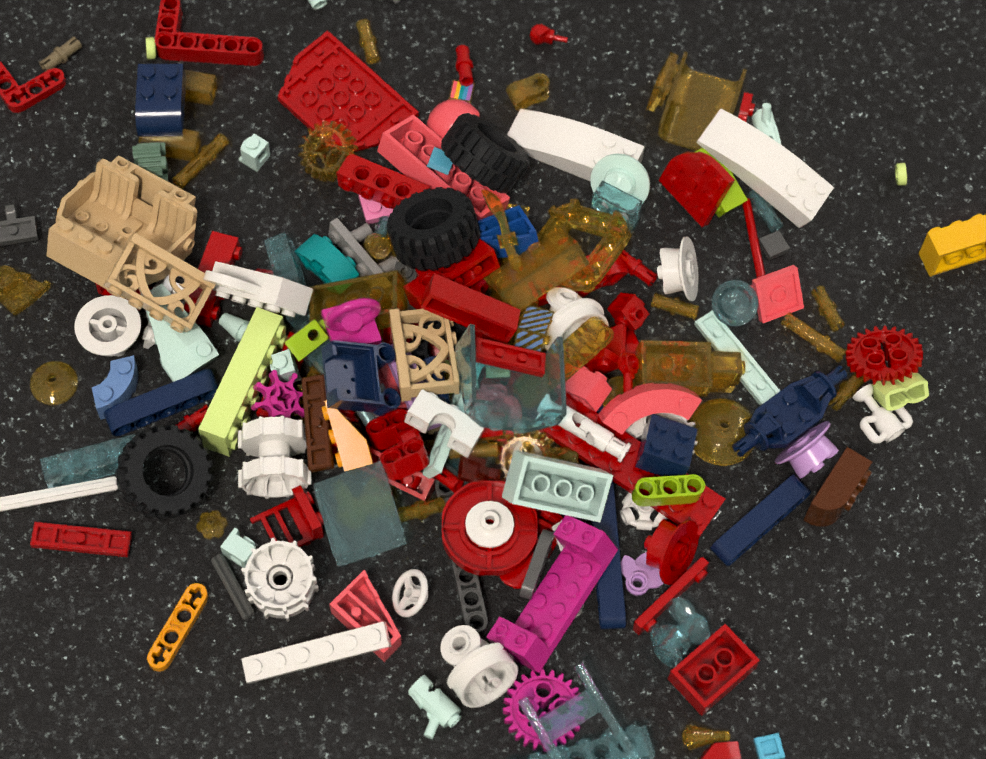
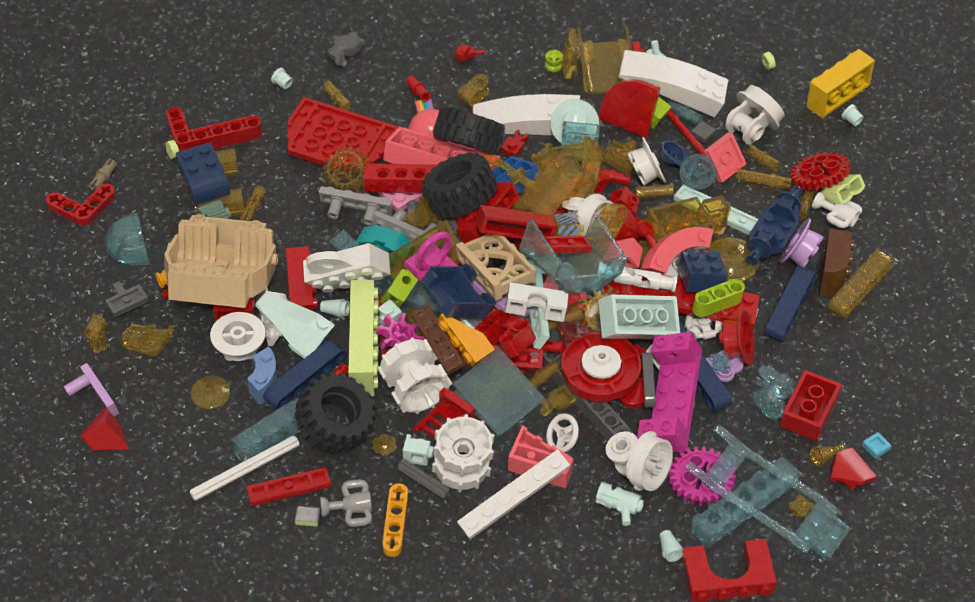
camera: 20 degrees left, 15 degrees down
(44, 156) = (126, 242): none -> clear light blue brick
(85, 584) = (307, 516): none -> flat silver piece
(138, 588) = (351, 503): none -> light grey piece
(192, 280) = (260, 294): tan fence -> none
(252, 149) = (289, 190): light aqua brick -> none
(316, 186) = (347, 198): none -> light grey plate
(429, 544) = (558, 398): none -> clear yellow plate
(439, 161) = (438, 146): medium azure tile -> none
(540, 182) = (515, 145): none -> red plate
(630, 575) = (720, 362): none -> clear light blue plate
(638, 78) = (553, 60): none -> lime wheel
(648, 618) = (745, 392): red plate -> none
(657, 236) = (617, 155): none -> clear yellow slope
(722, 265) = (673, 153): none -> dark blue cap
(829, 263) = (759, 106): none -> white piece
(858, 526) = (861, 283): none -> clear yellow beam
(966, 289) = (852, 115): none -> light aqua piece

